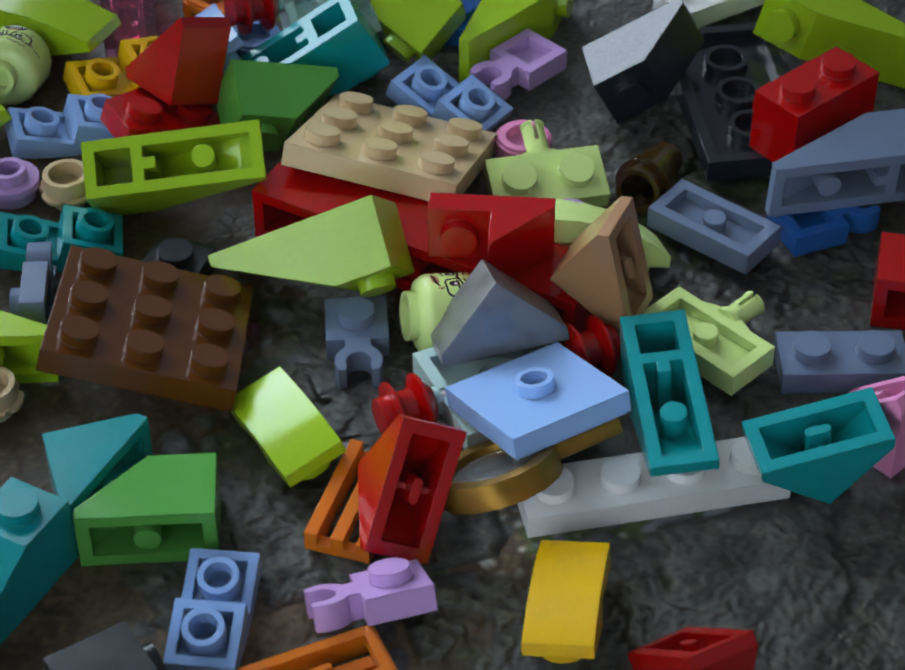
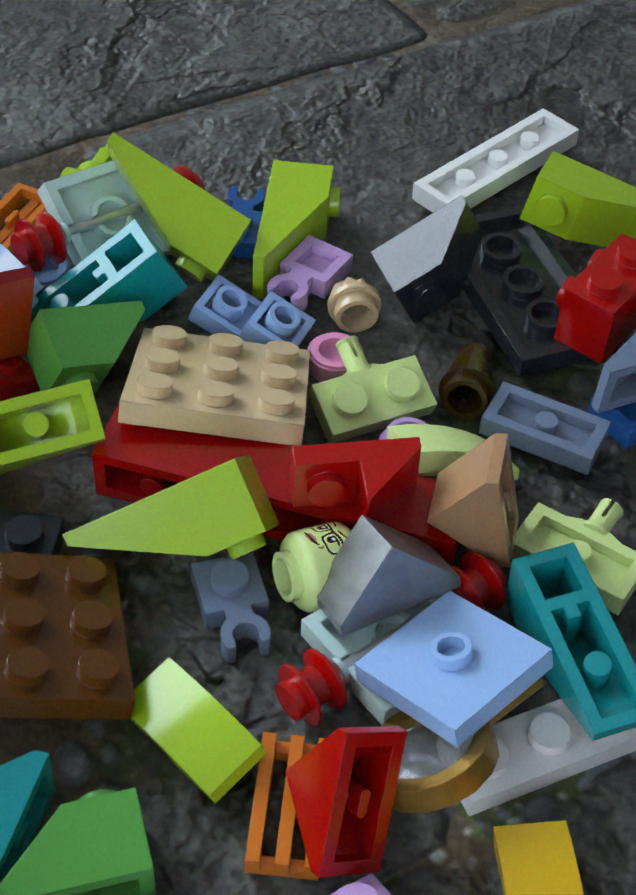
camera: 15 degrees left, 5 degrees up
(555, 97) = (354, 305): none -> tan plate

